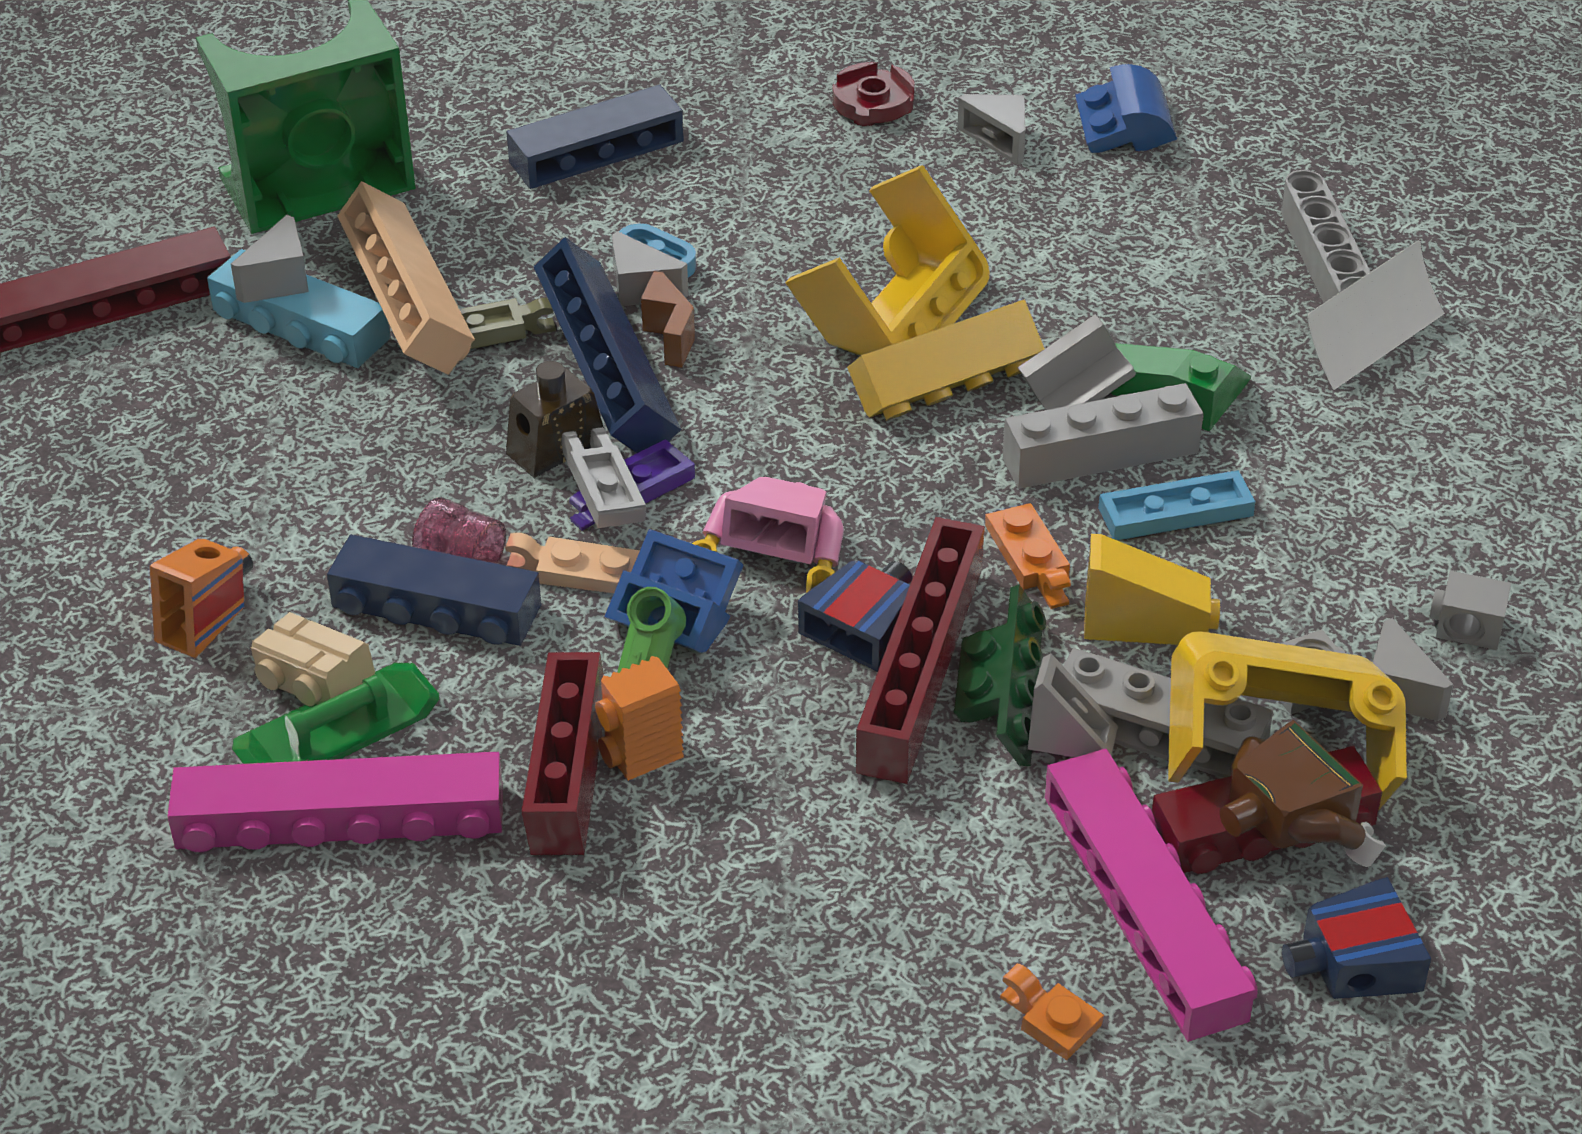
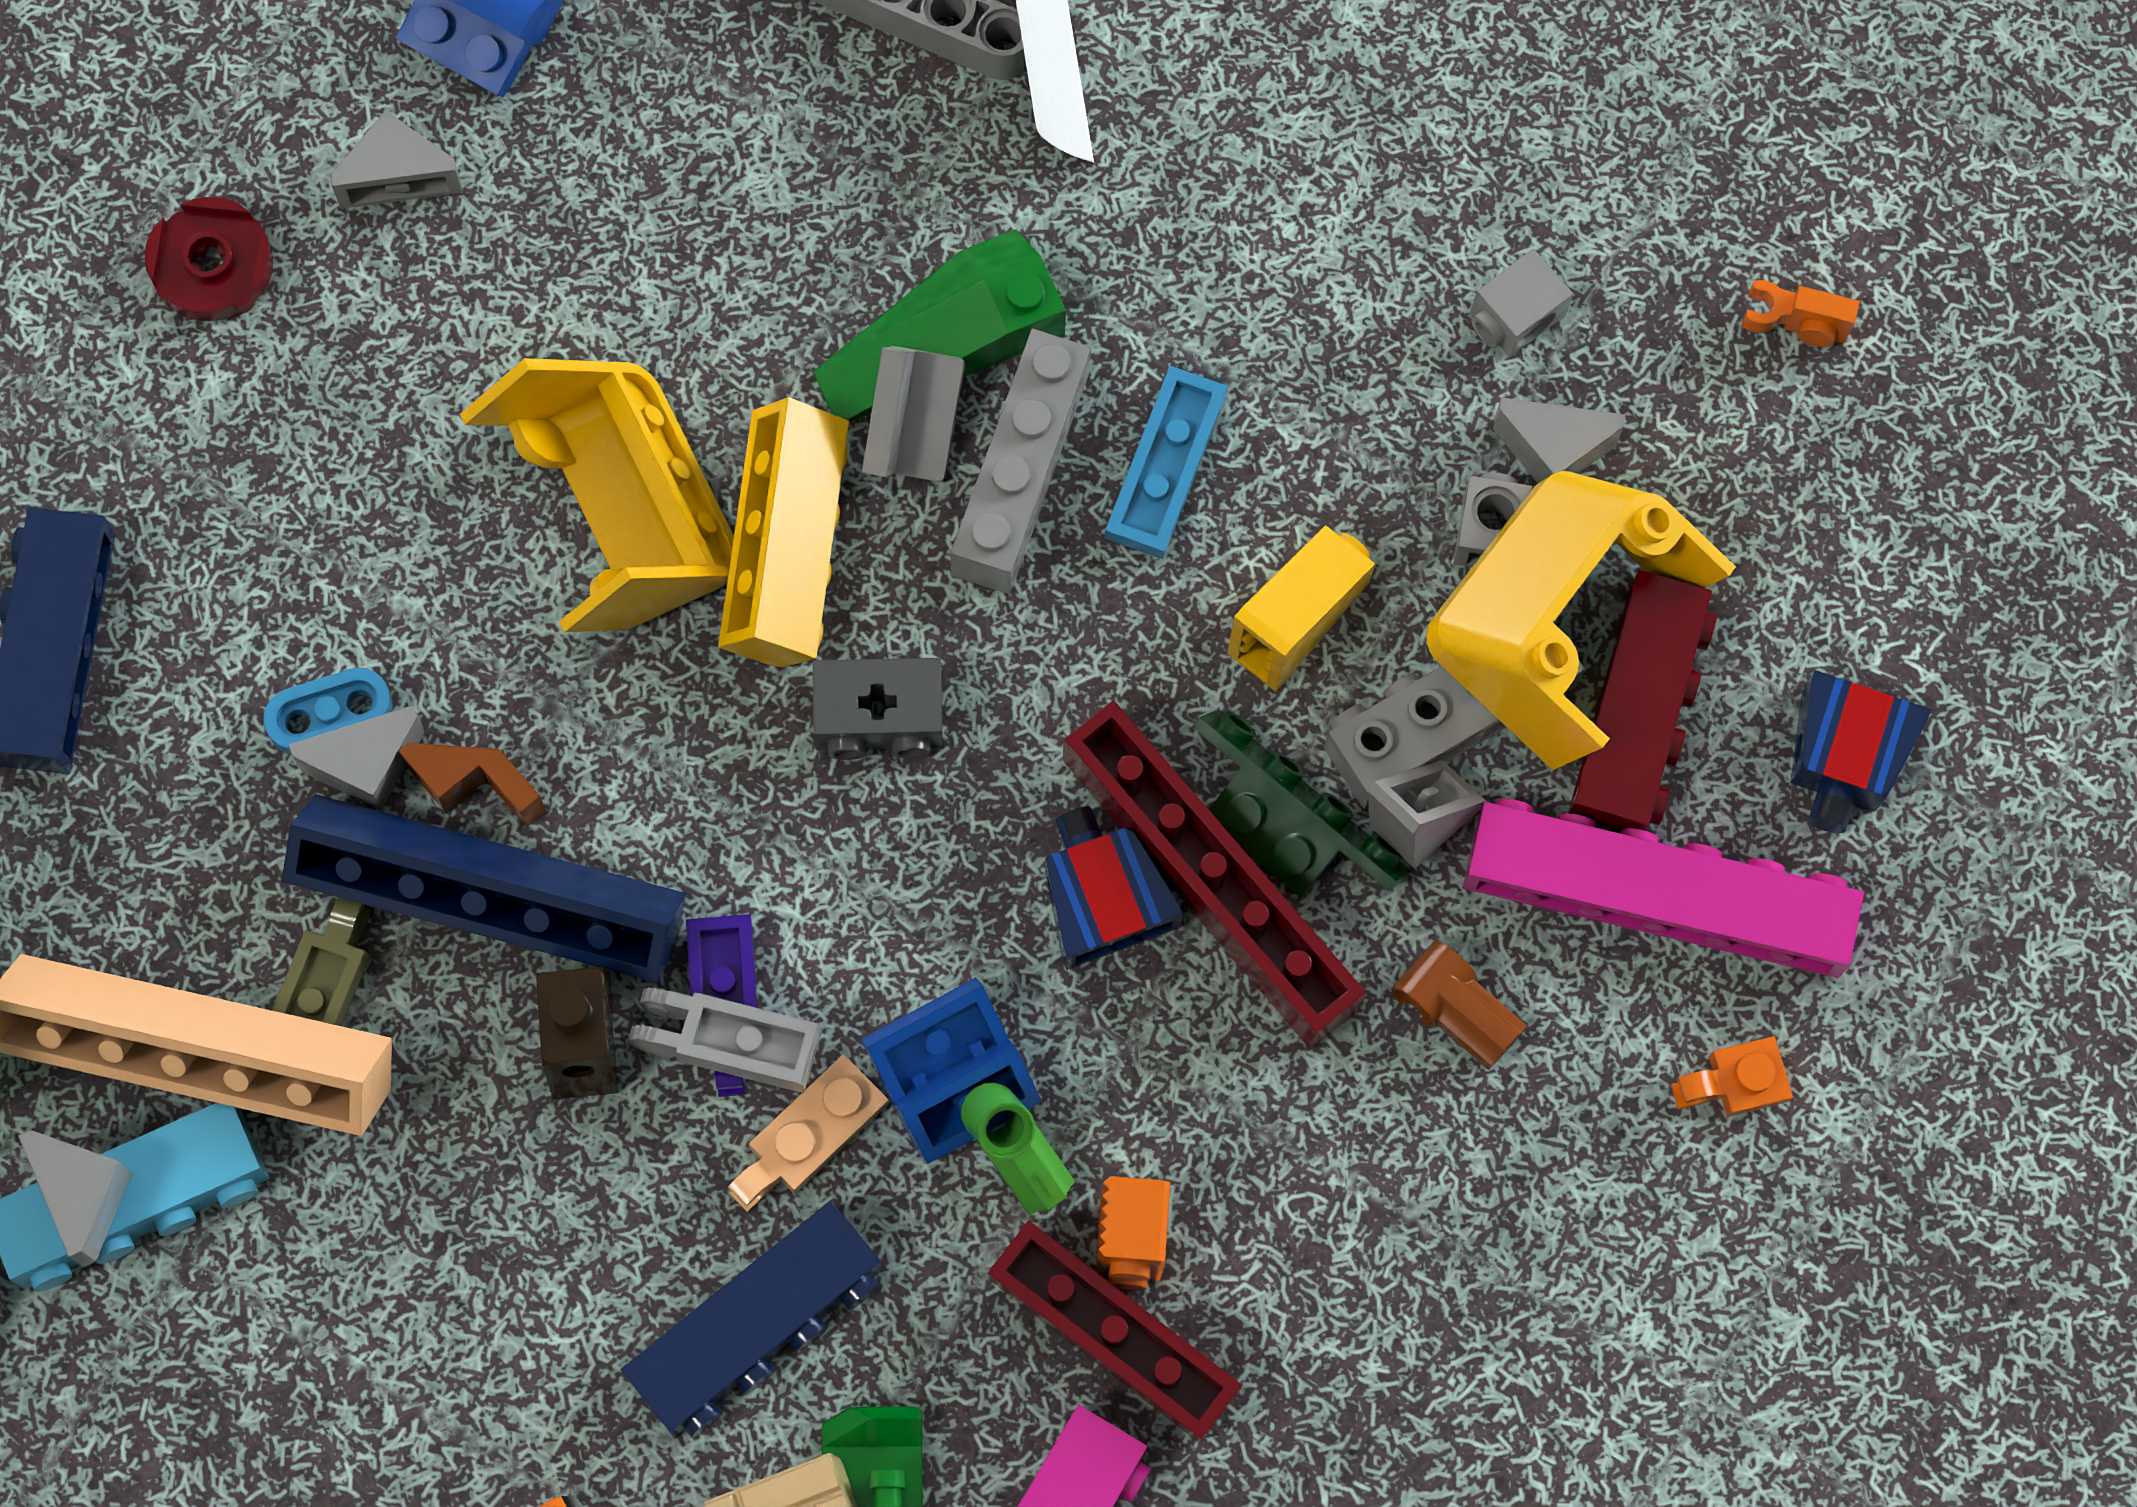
camera: 60 degrees left, 30 degrees up
(457, 531) = (717, 1238): clear pink wheel -> none
(780, 522) = (919, 890): bright pink torso -> none
(882, 454) = (845, 697): none -> dark grey brick
(956, 820) = (1448, 996): none -> dark orange piece
(1031, 552) = (1123, 654): orange plate -> none
(1297, 795) = (1675, 683): reddish brown torso -> none

